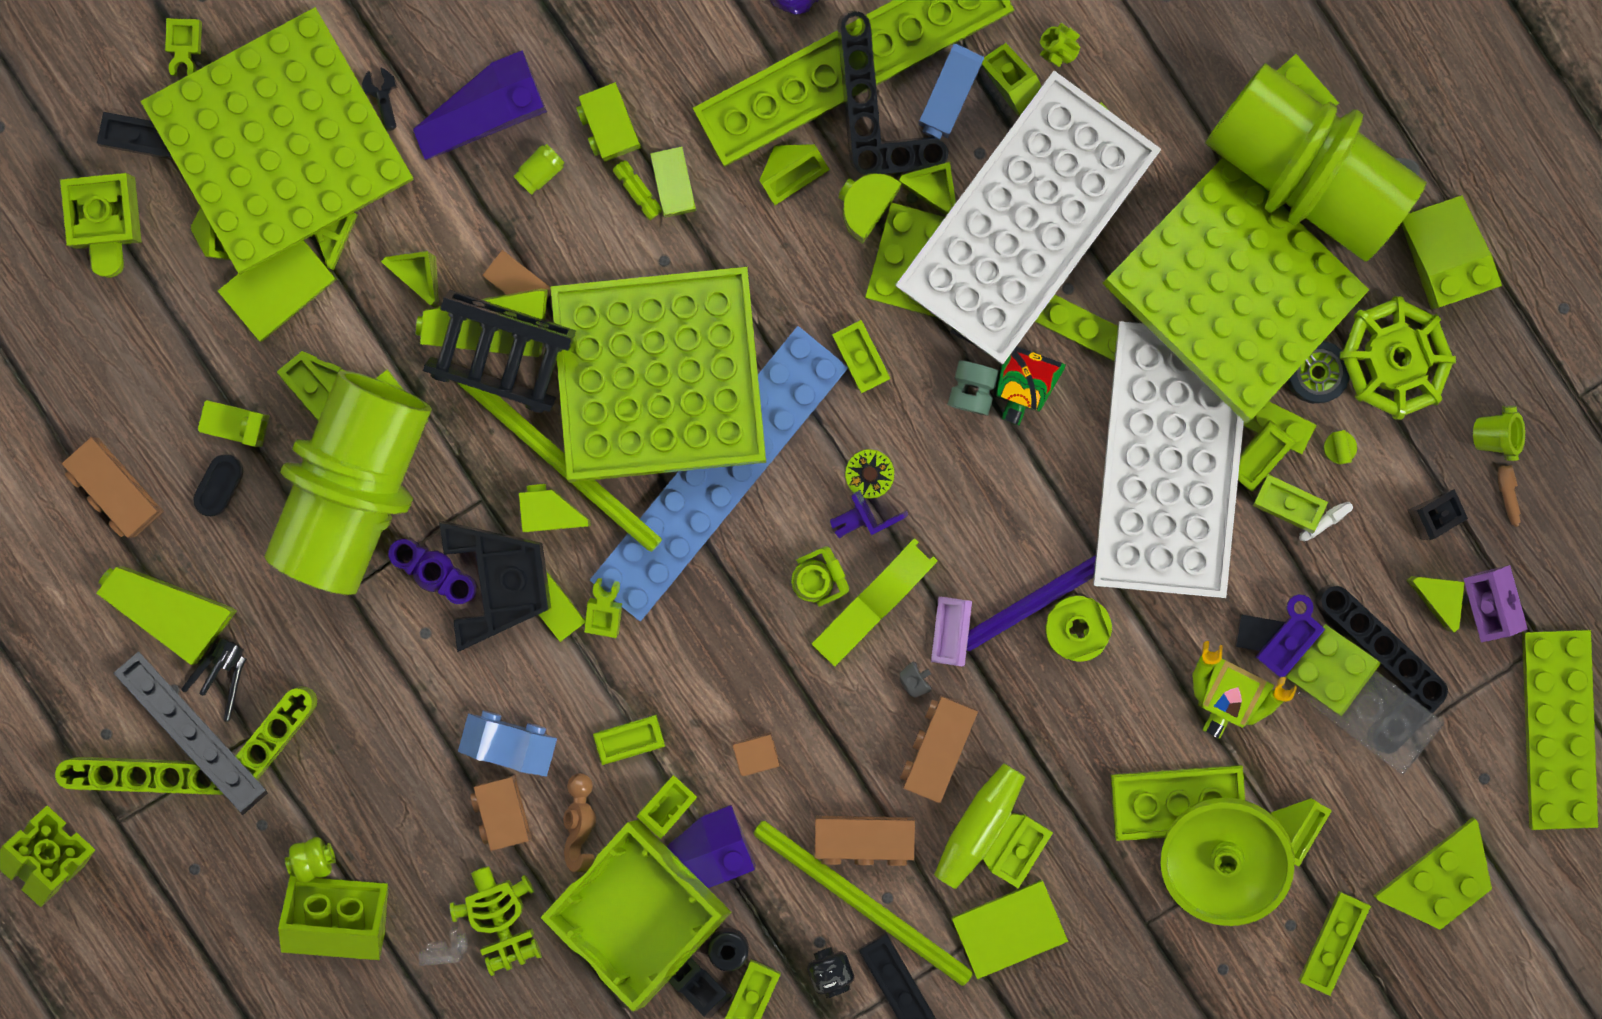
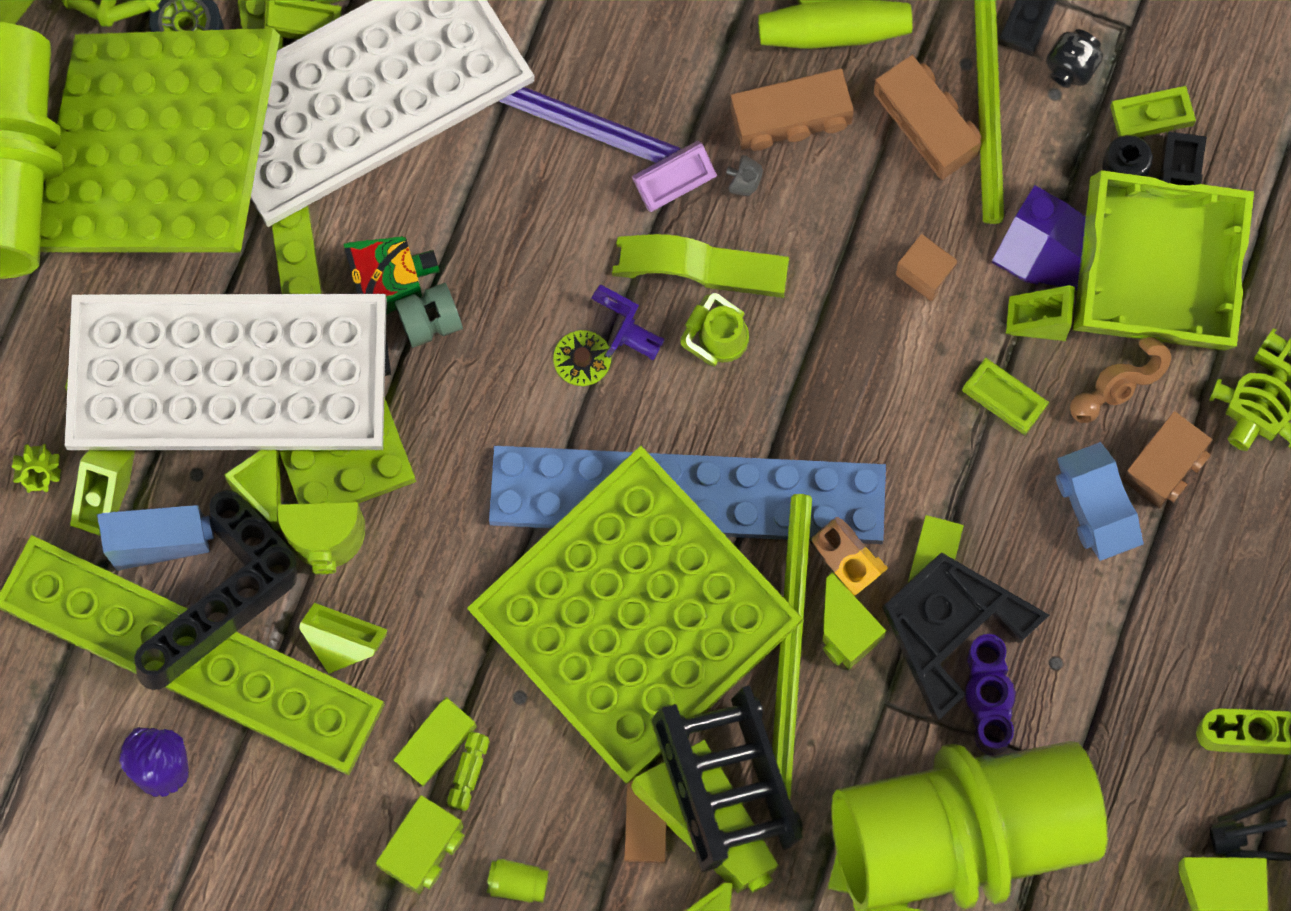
camera: 125 degrees left, 15 degrees down
(591, 546) = (847, 555): none -> leg
(602, 613) = (902, 503): lime plate -> none
(861, 356) = (475, 441): lime plate -> none
(1095, 636) = (586, 89): lime plate -> none

